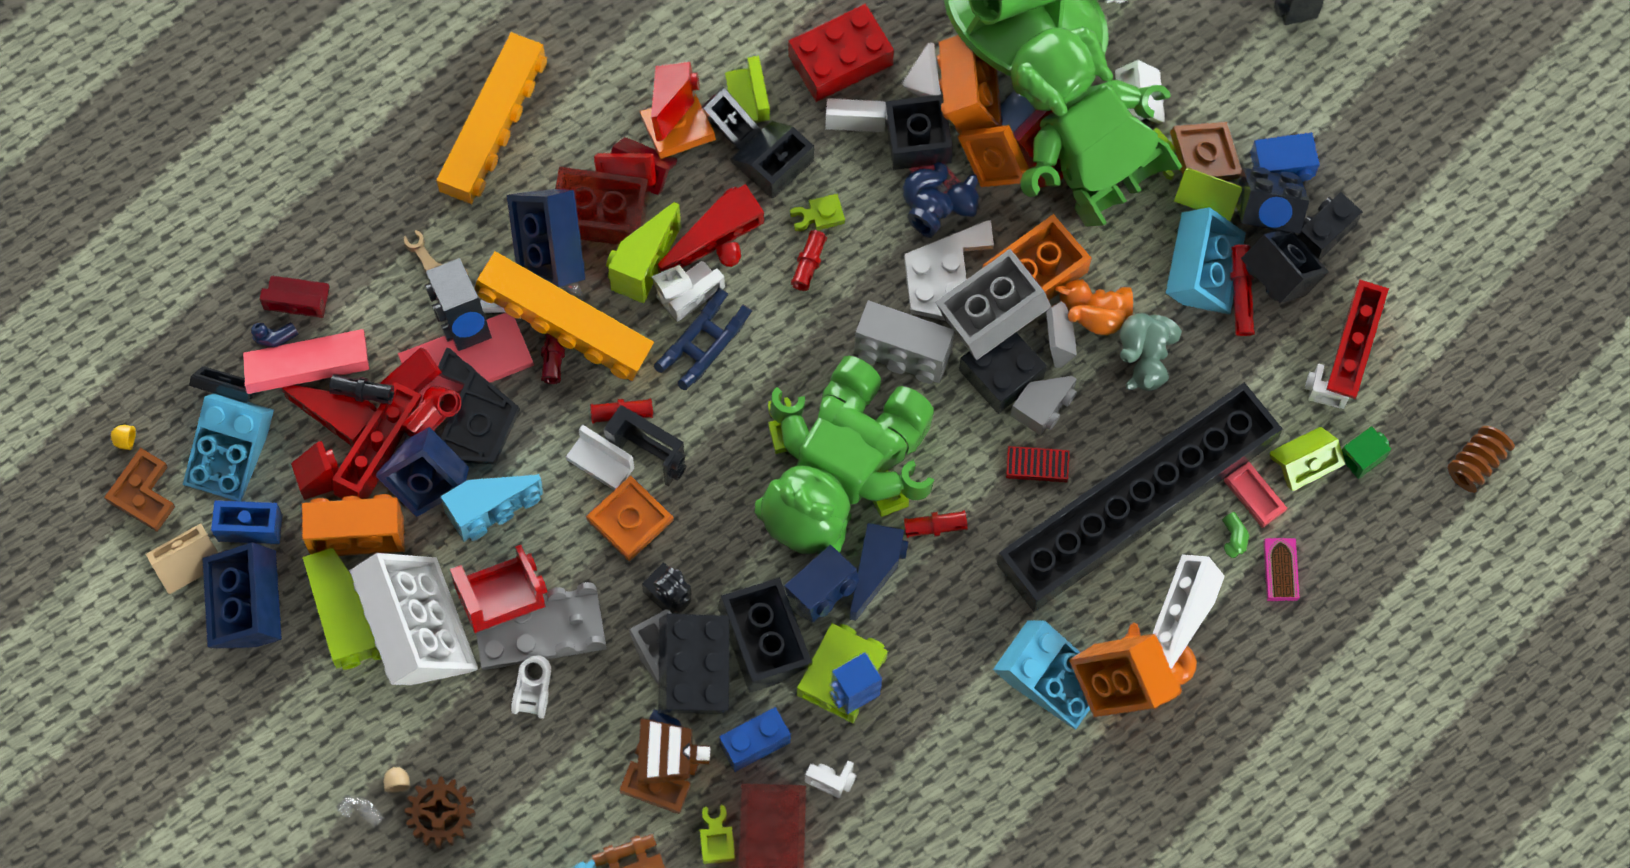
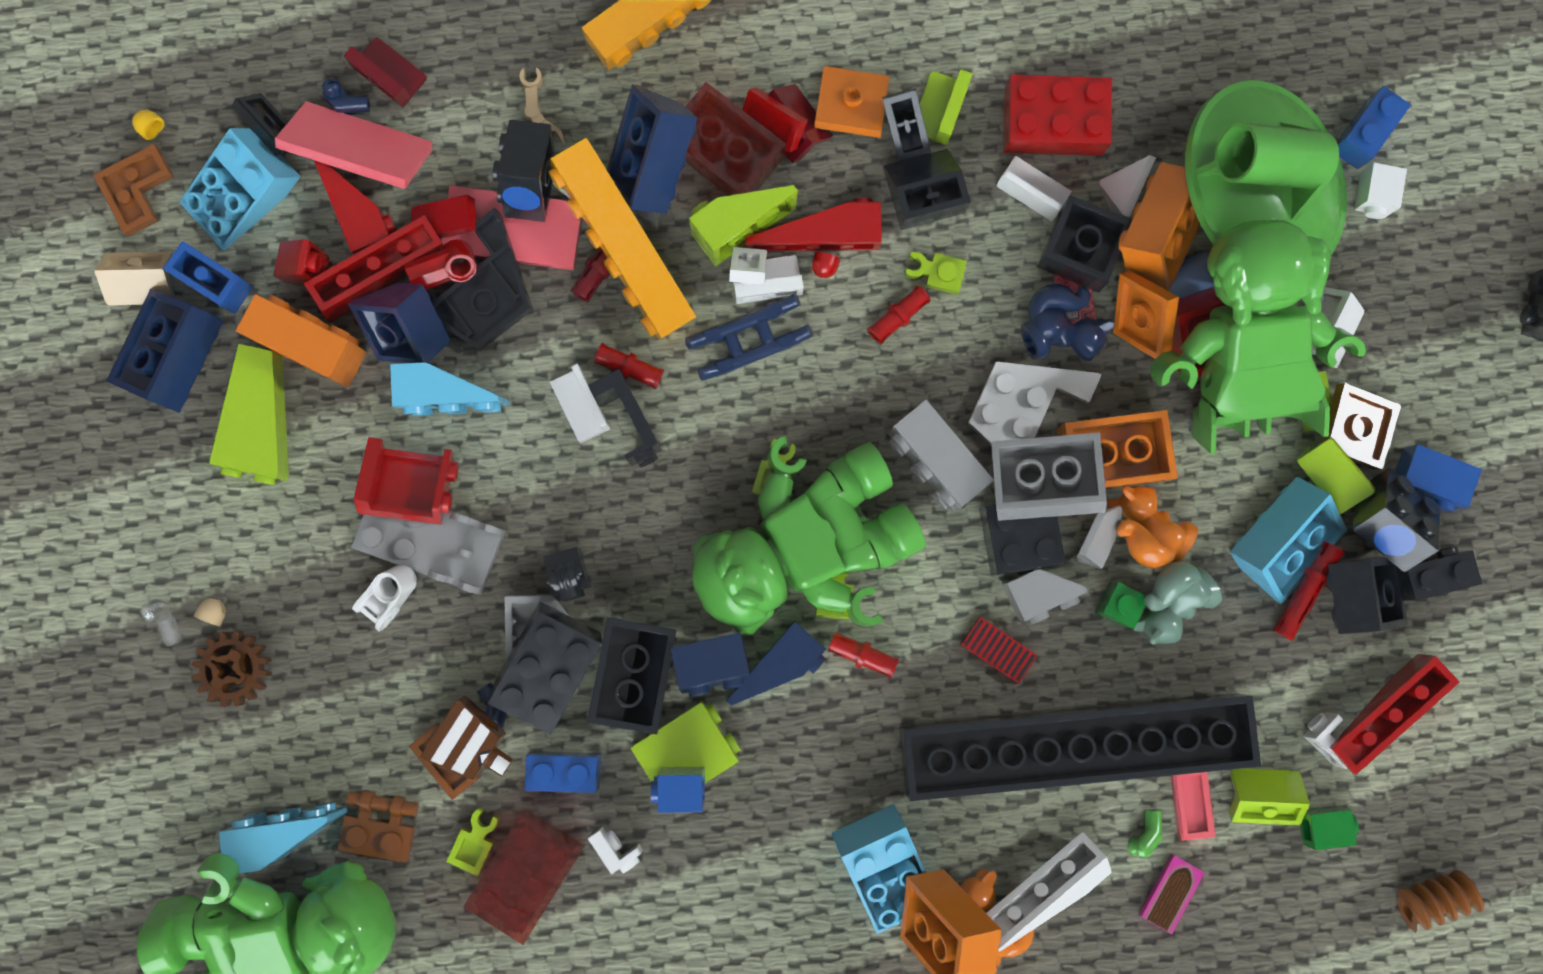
camera: 25 degrees right, 15 degrees up
(361, 389) = (384, 206): black pin -> none
(412, 618) = (305, 467): white slope -> none
(629, 518) = (574, 479): orange plate -> none
(672, 96) = (860, 69): slope -> none
(1109, 377) = (1121, 605): none -> green brick

